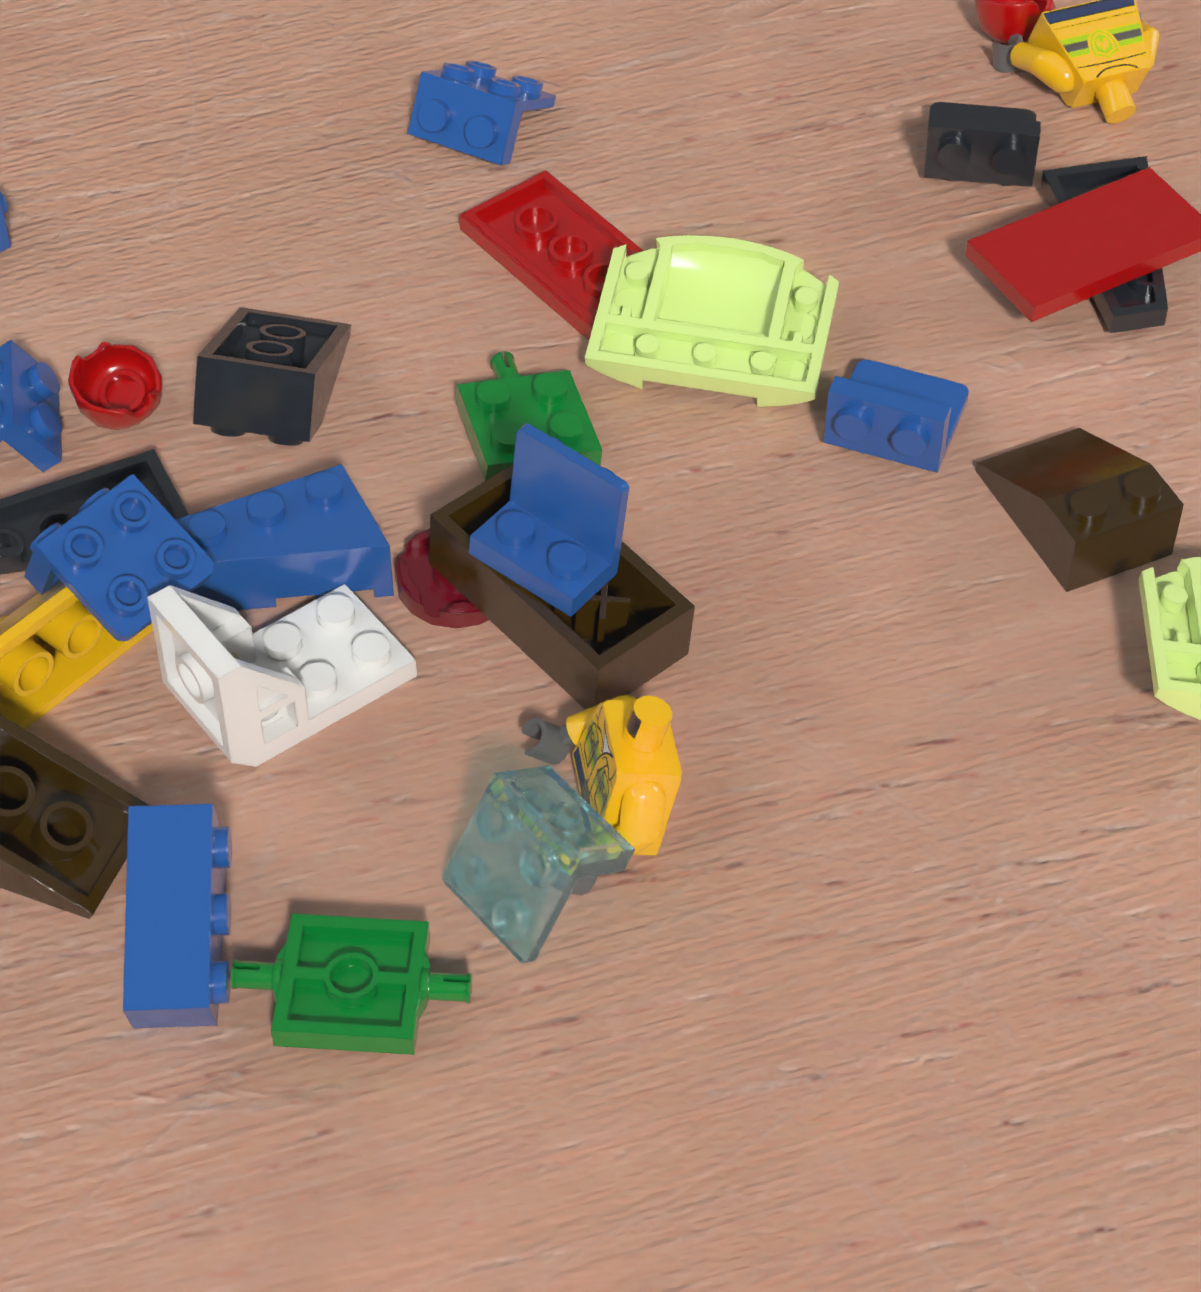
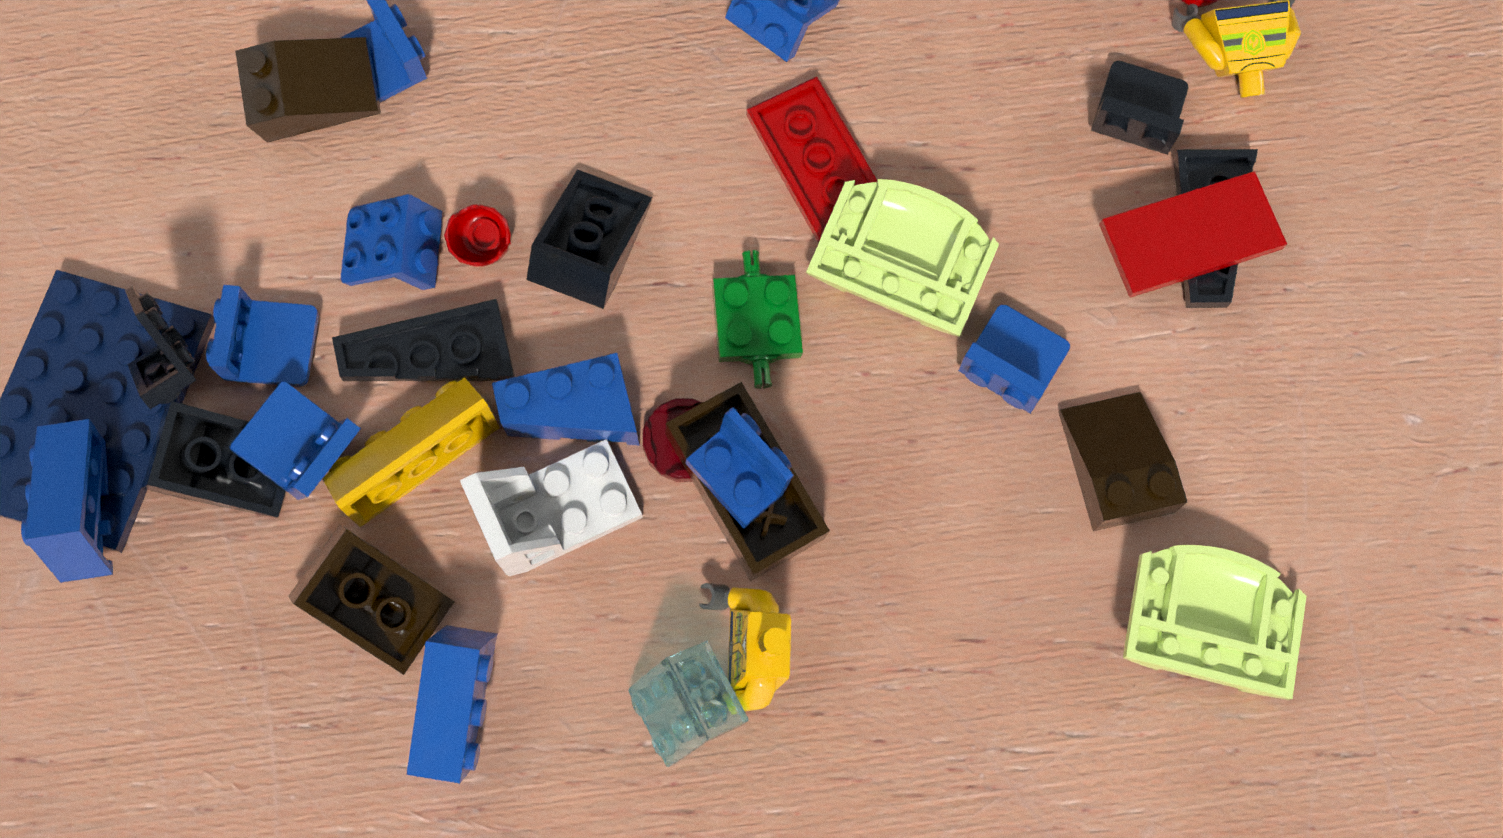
camera: 10 degrees right, 25 degrees up
(117, 556) = (450, 430): blue bracket -> none
(351, 983) = (555, 767): green plate -> none

